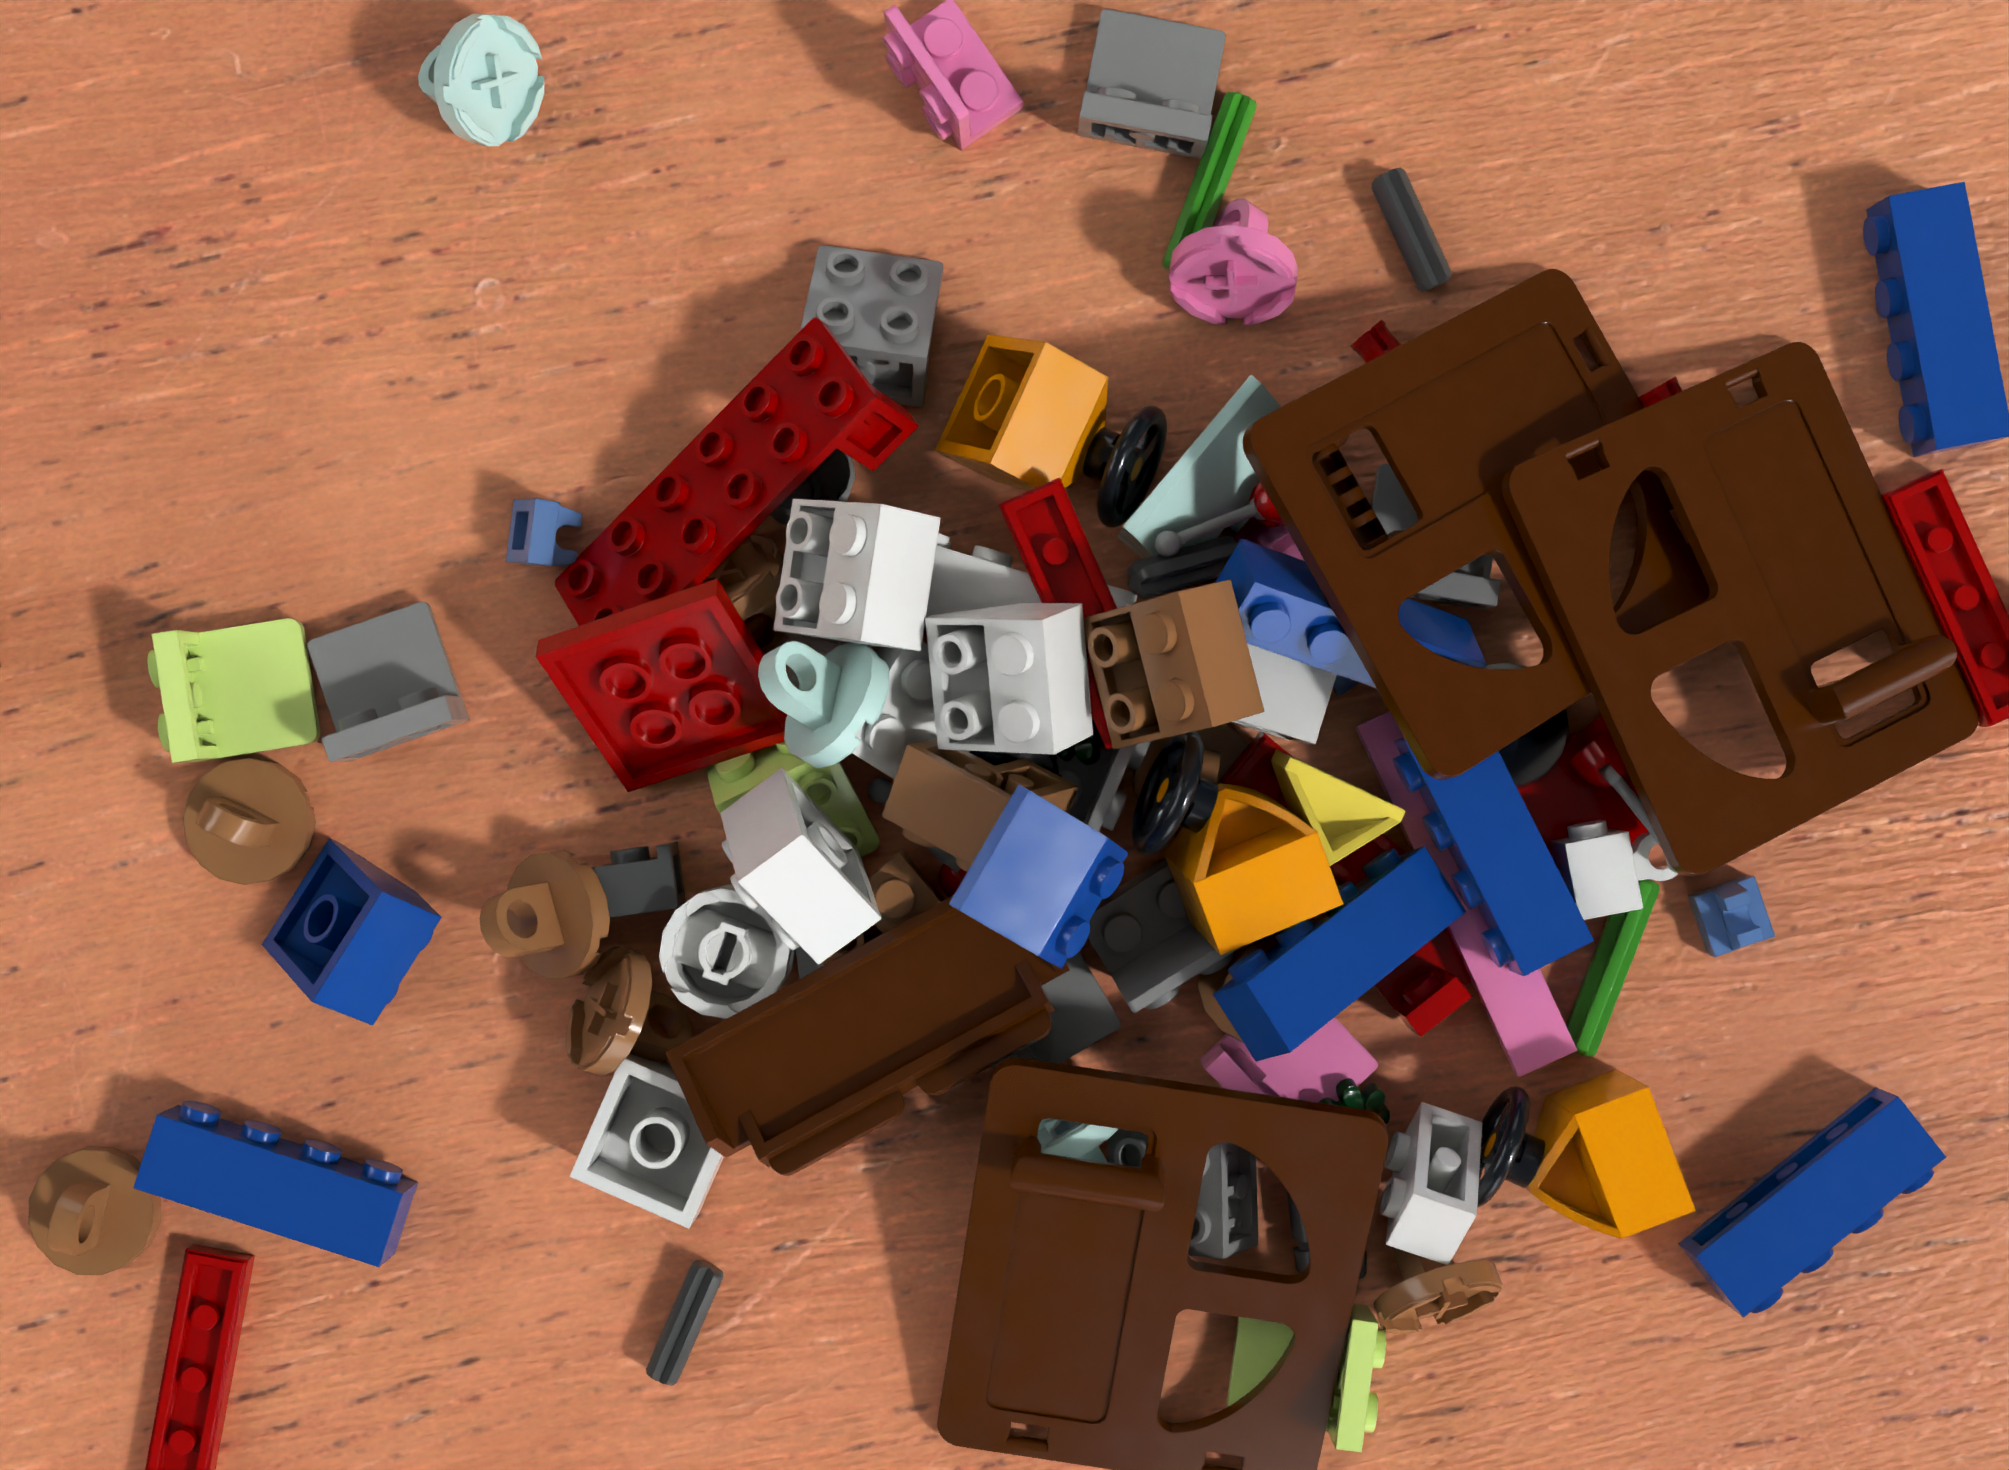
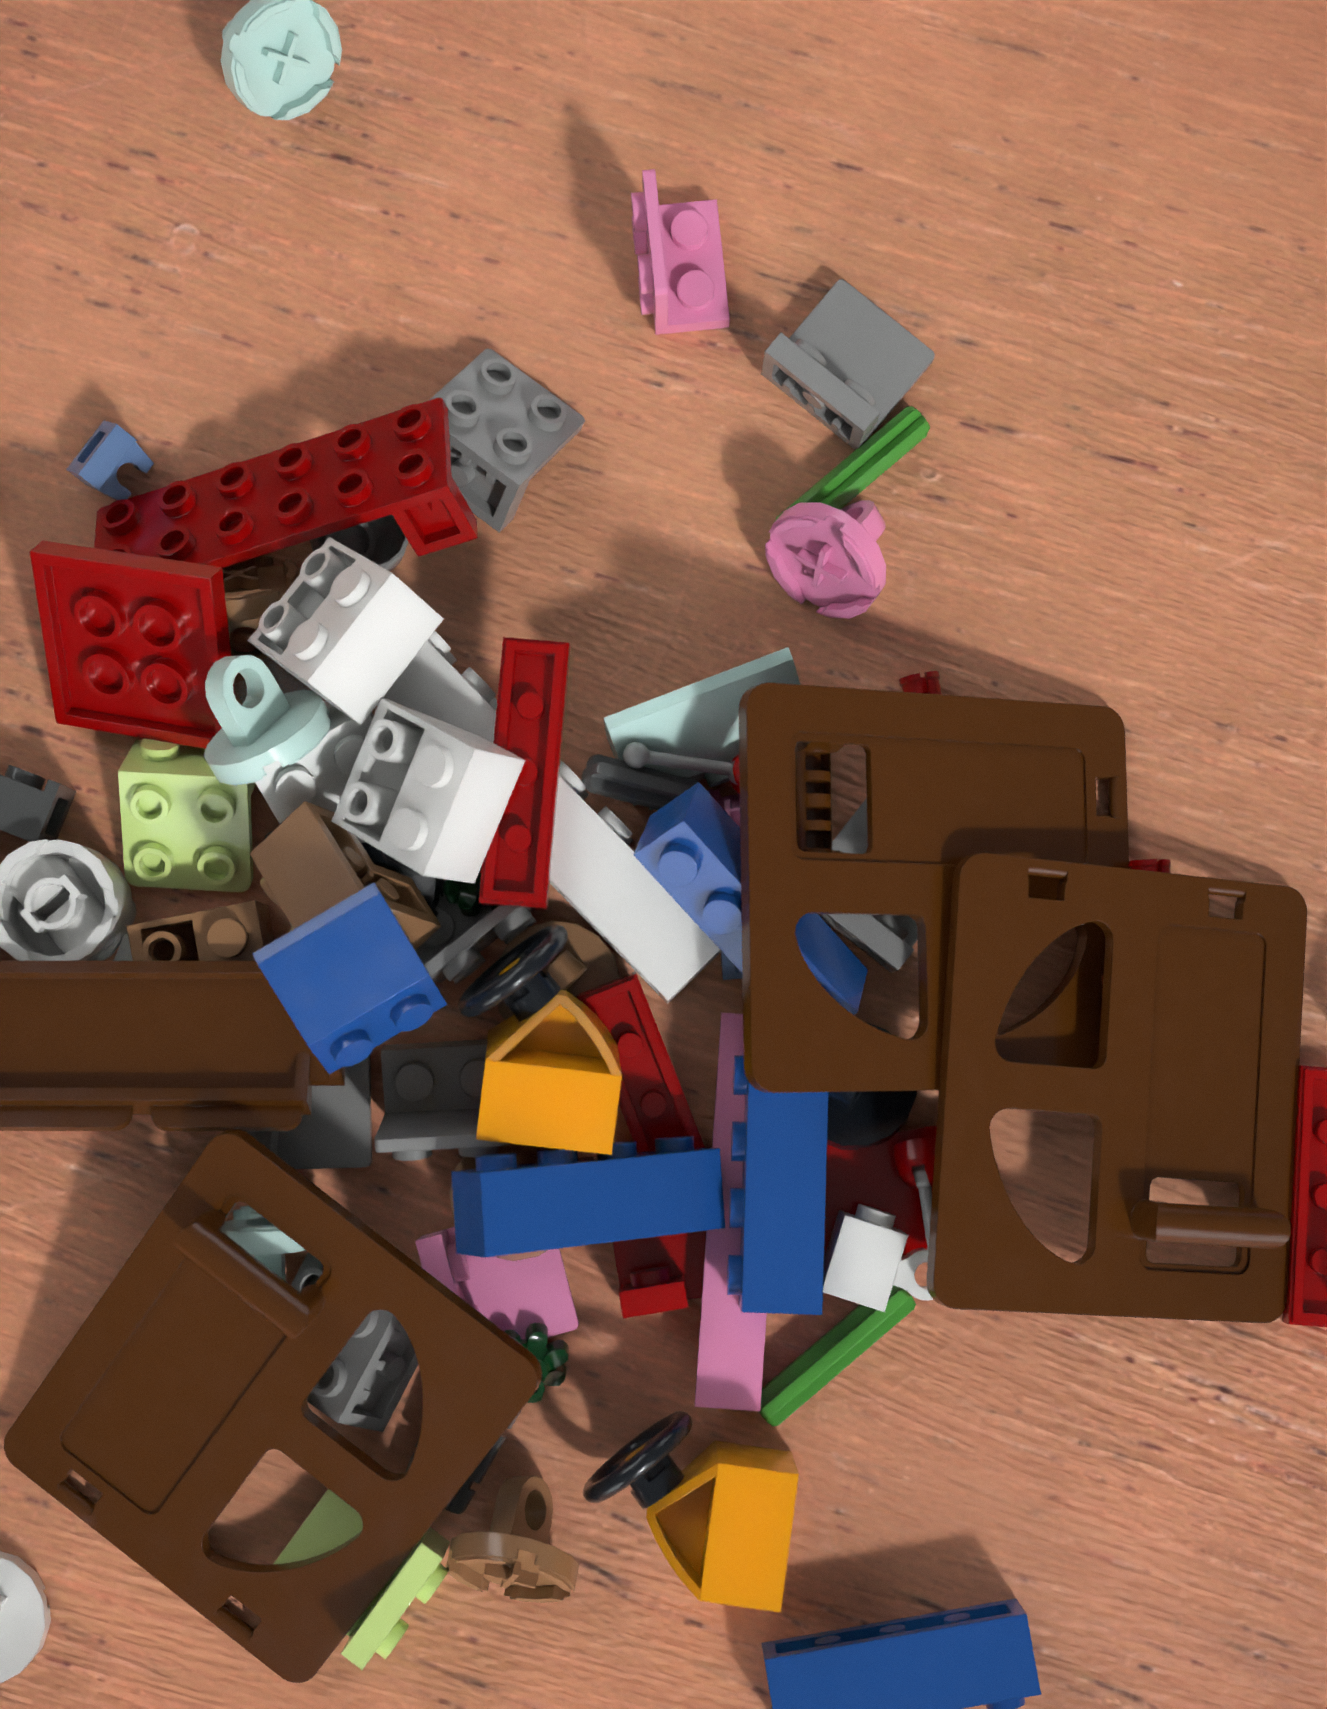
camera: 25 degrees right, 5 degrees down
(798, 868) = (154, 861): white brick -> none
(1043, 417) = (597, 590): light orange piece -> none
(1172, 665) = (574, 855): medium nougat slope -> none
(1336, 809) = (656, 1071): light yellow slope -> none
(1411, 229) = (1006, 609): dark grey axle -> none
(1432, 1183) = (564, 1460): white brick -> none
(1731, 915) = (967, 1368): medium blue tile -> none

